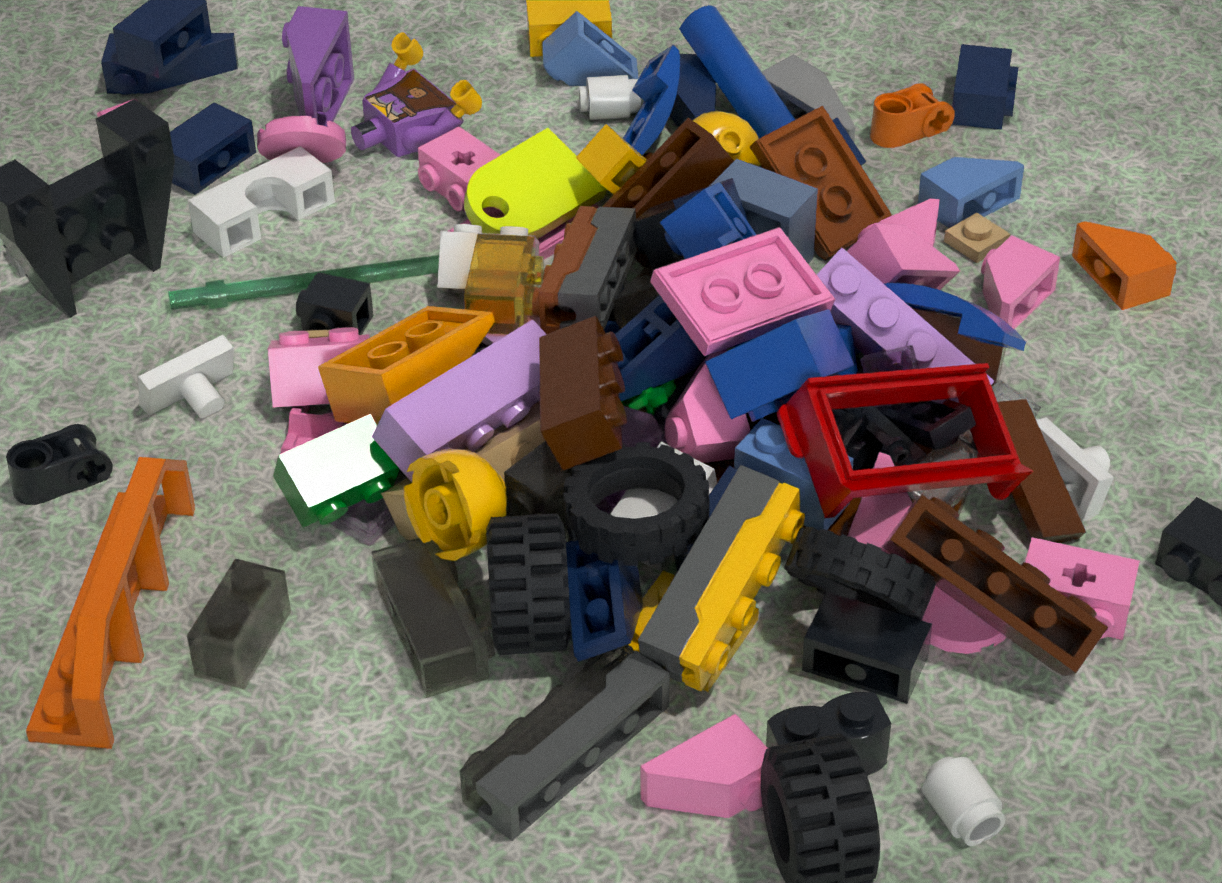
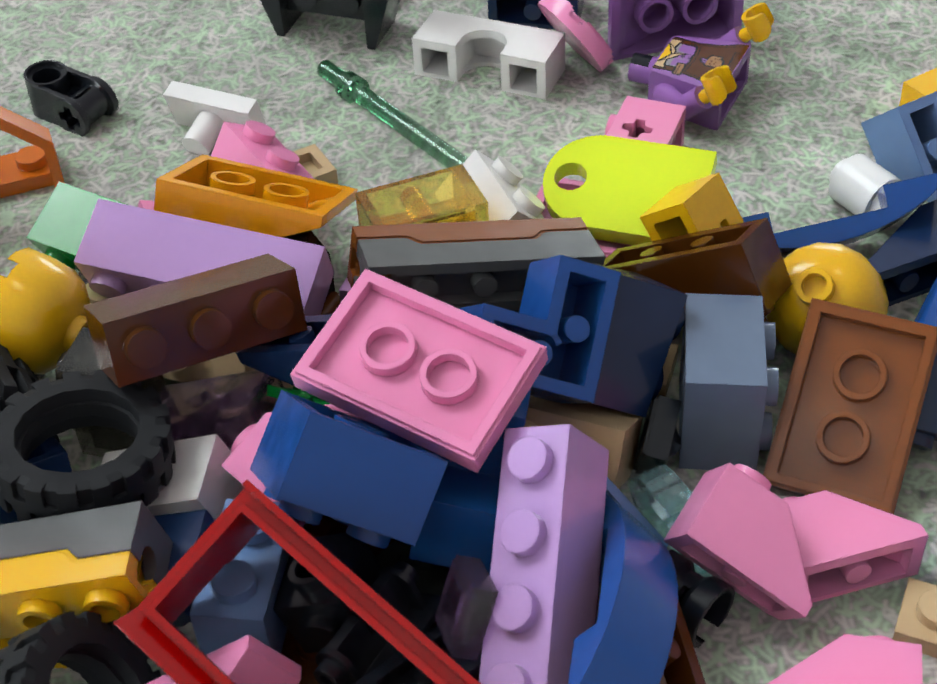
camera: 65 degrees right, 0 degrees up
(335, 303) = (364, 152): black brick -> none

